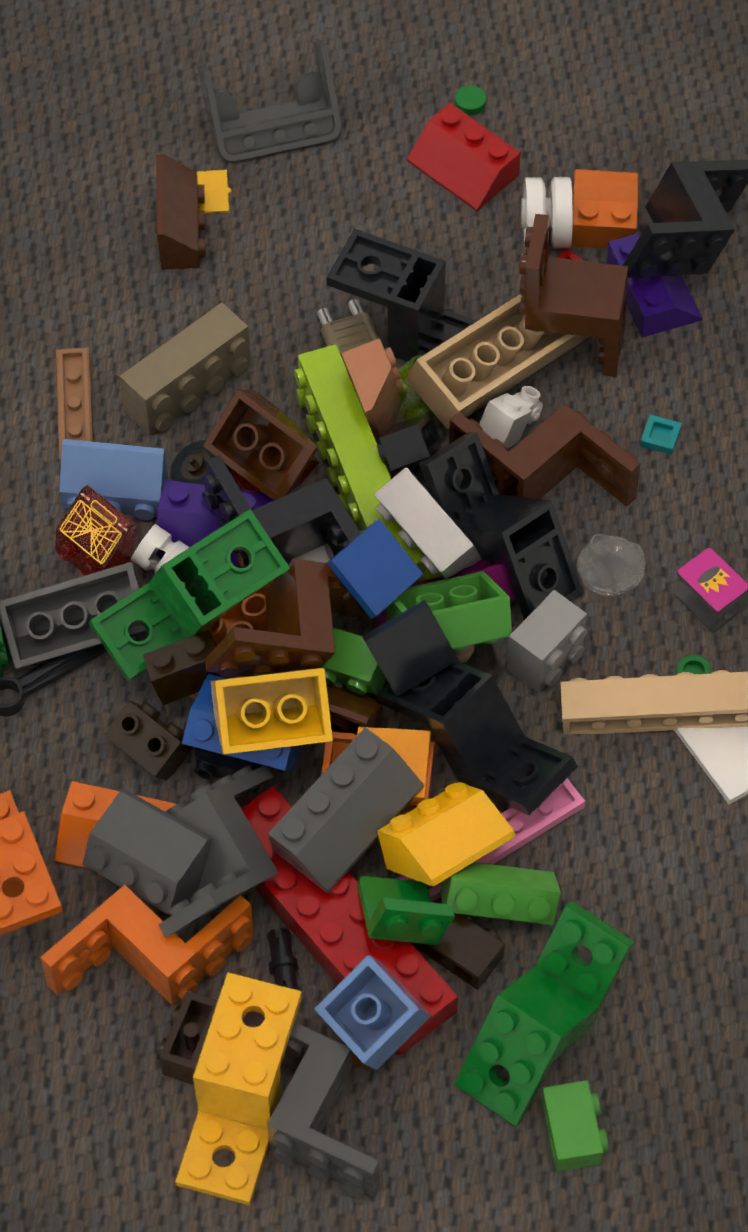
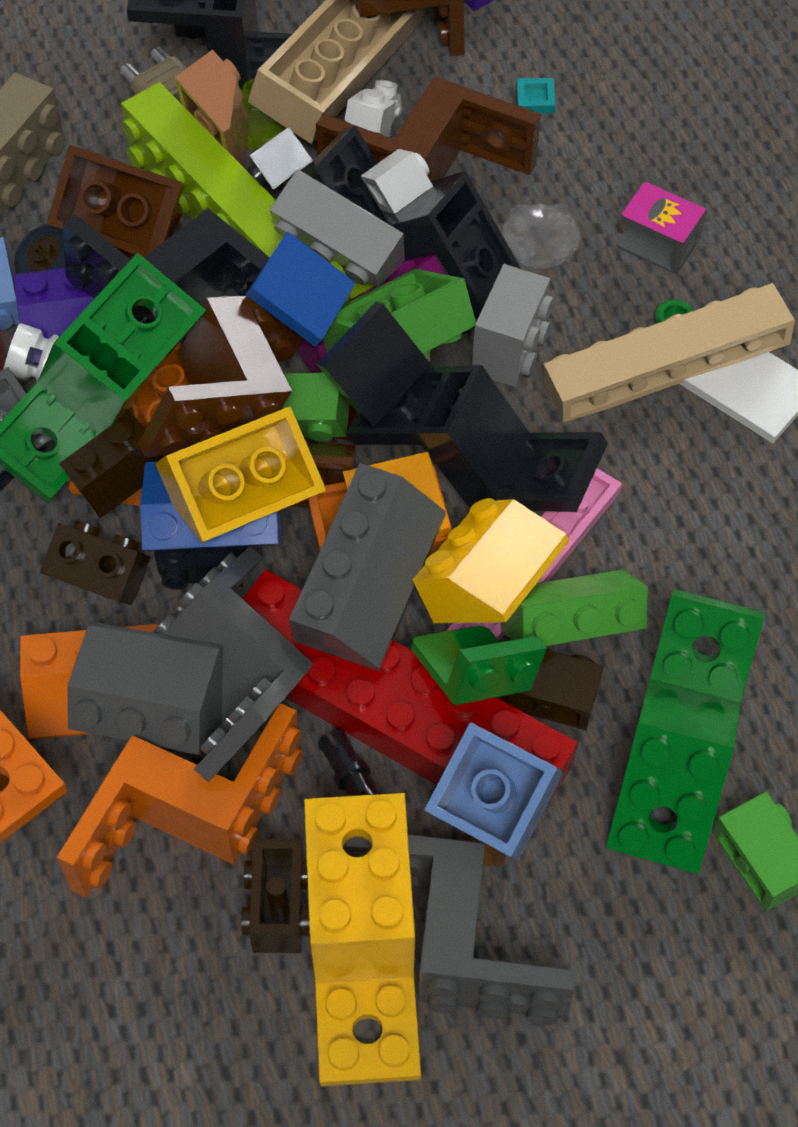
camera: 20 degrees left, 0 degrees up
(497, 490) = (398, 180): none -> white brick

